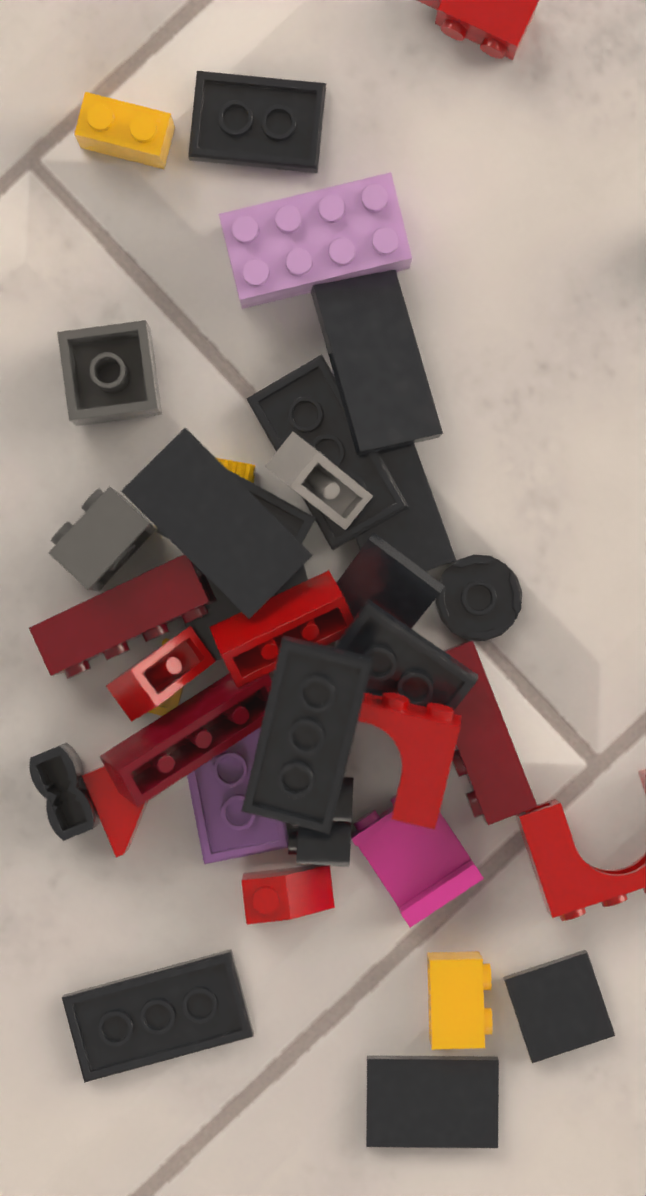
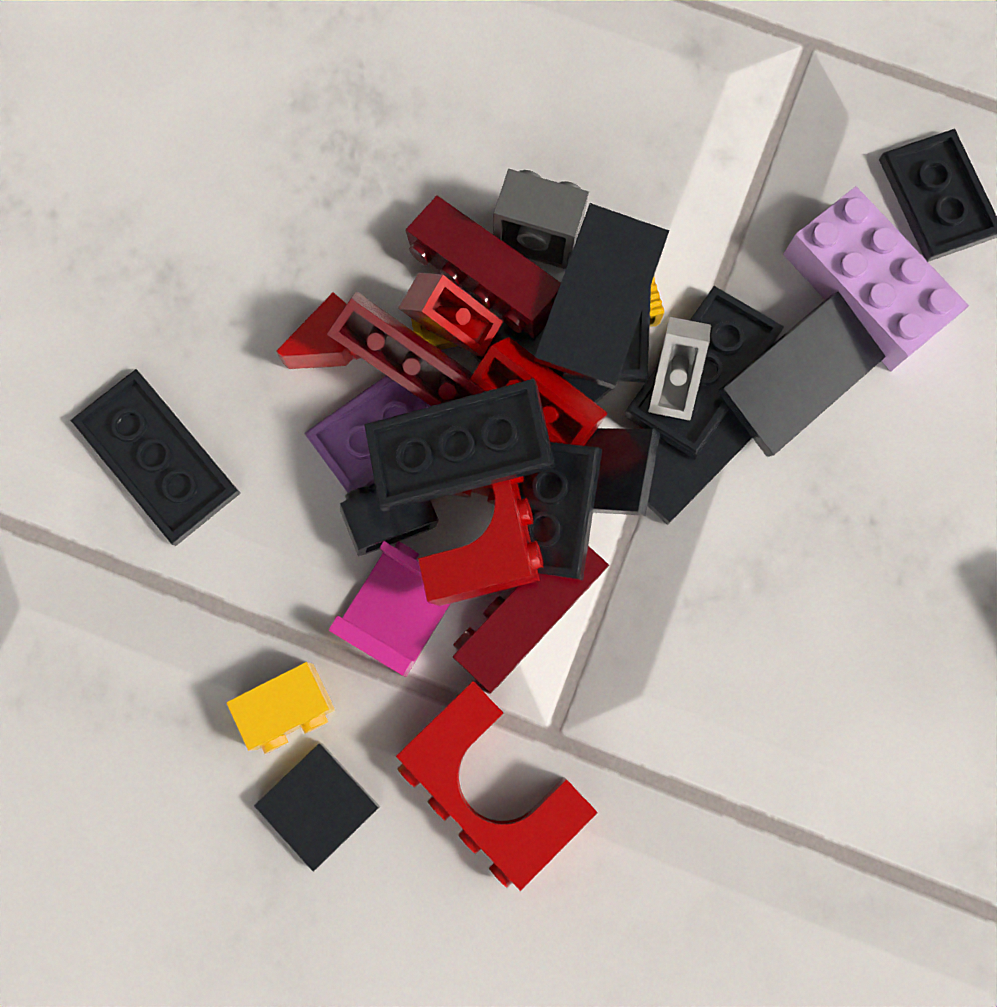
camera: 60 degrees right, 10 degrees down
(59, 780) = (304, 289): black brick -> none
(109, 373) = (678, 165): dark grey brick -> none
(124, 130) = (877, 92): yellow brick -> none
(286, 893) = (310, 512): red slope -> none
(432, 1101) = (179, 731): black tile -> none
(479, 598) = (646, 559): black tile -> none

